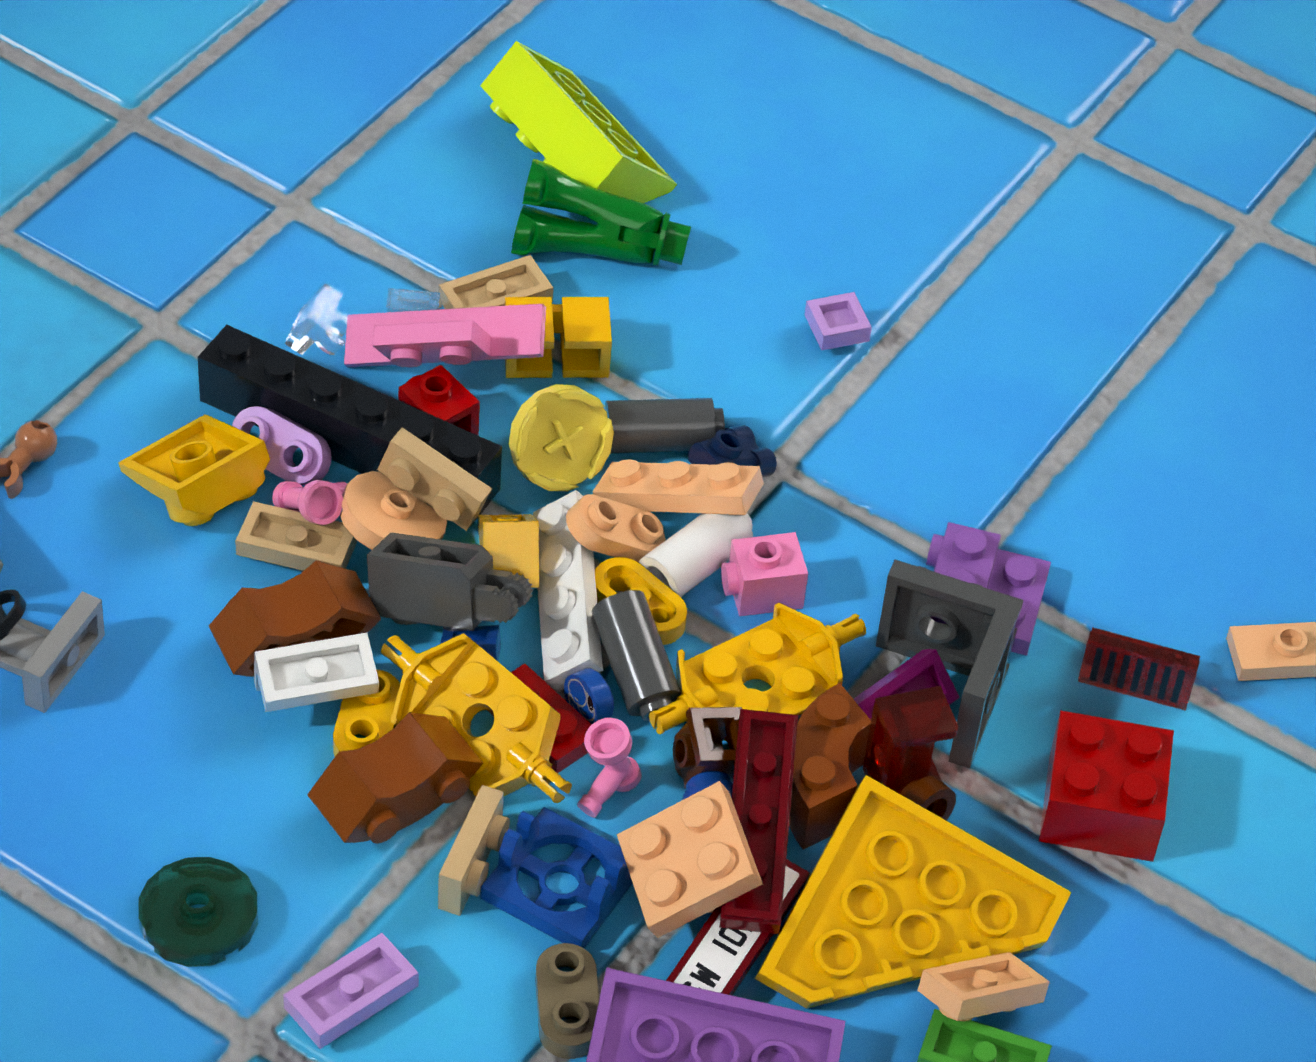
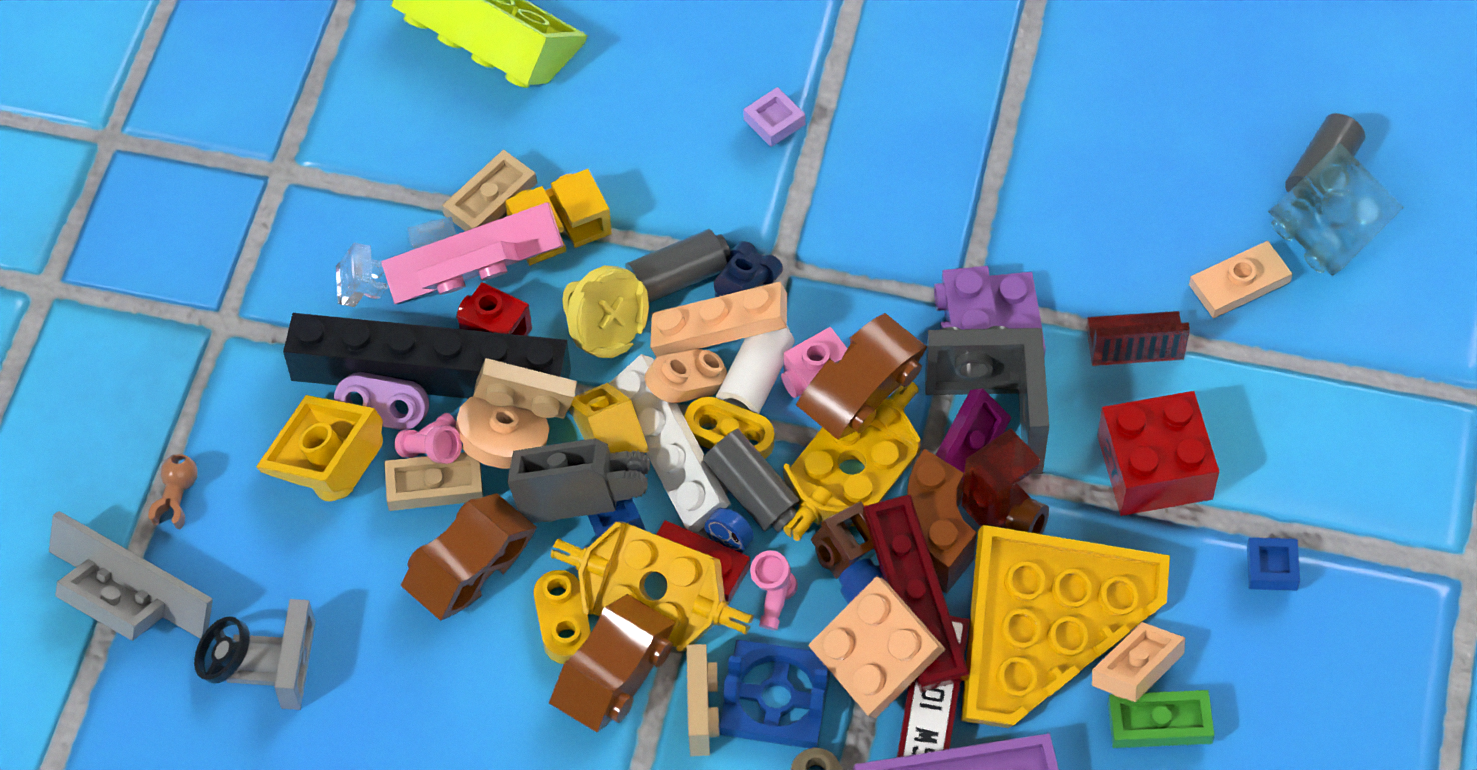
camera: 15 degrees left, 10 degrees up
(315, 672) = (509, 597): white panel -> none
(624, 228) = (562, 98): green piece -> none
(810, 585) = (875, 364): none -> dark orange brick
(1189, 946) = (1273, 564): none -> blue plate

